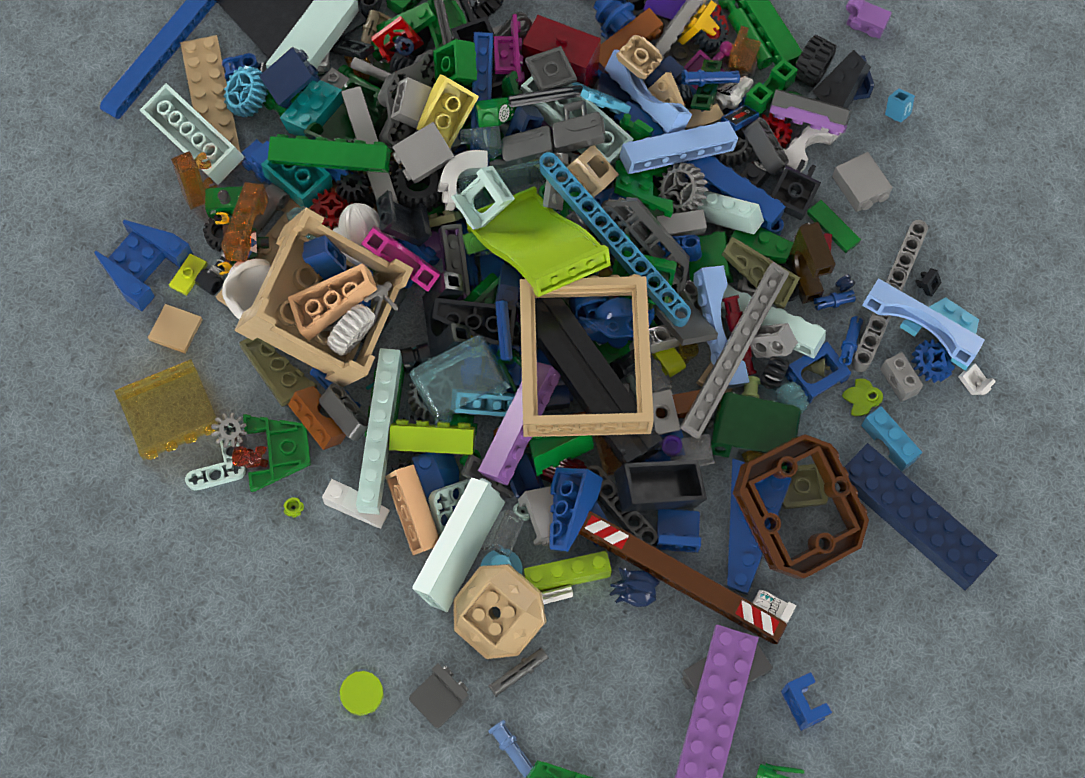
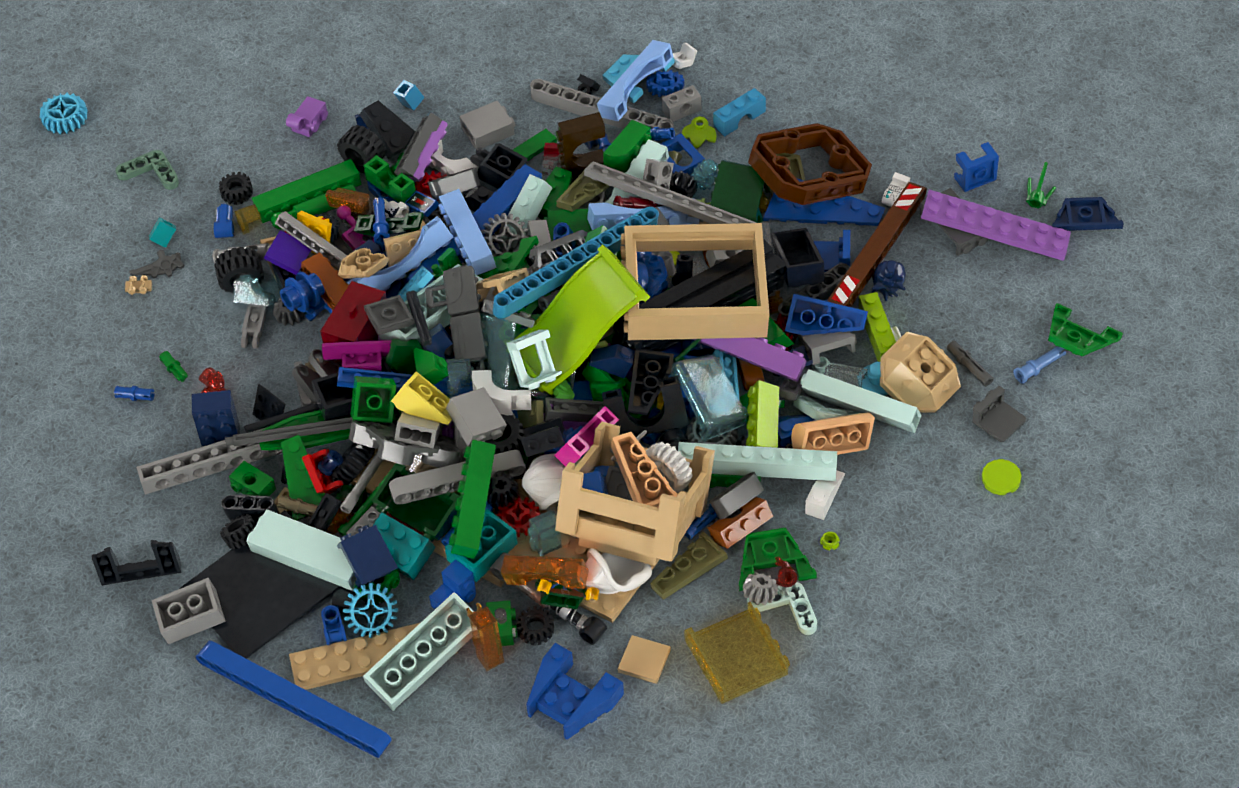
camera: 85 degrees left, 15 degrees down
(186, 275) = (584, 654): neon yellow plate -> none
(504, 330) = (661, 355): blue axle -> none
(824, 312) = (626, 146): none -> green brick
(918, 517) = (812, 93): dark blue brick -> none

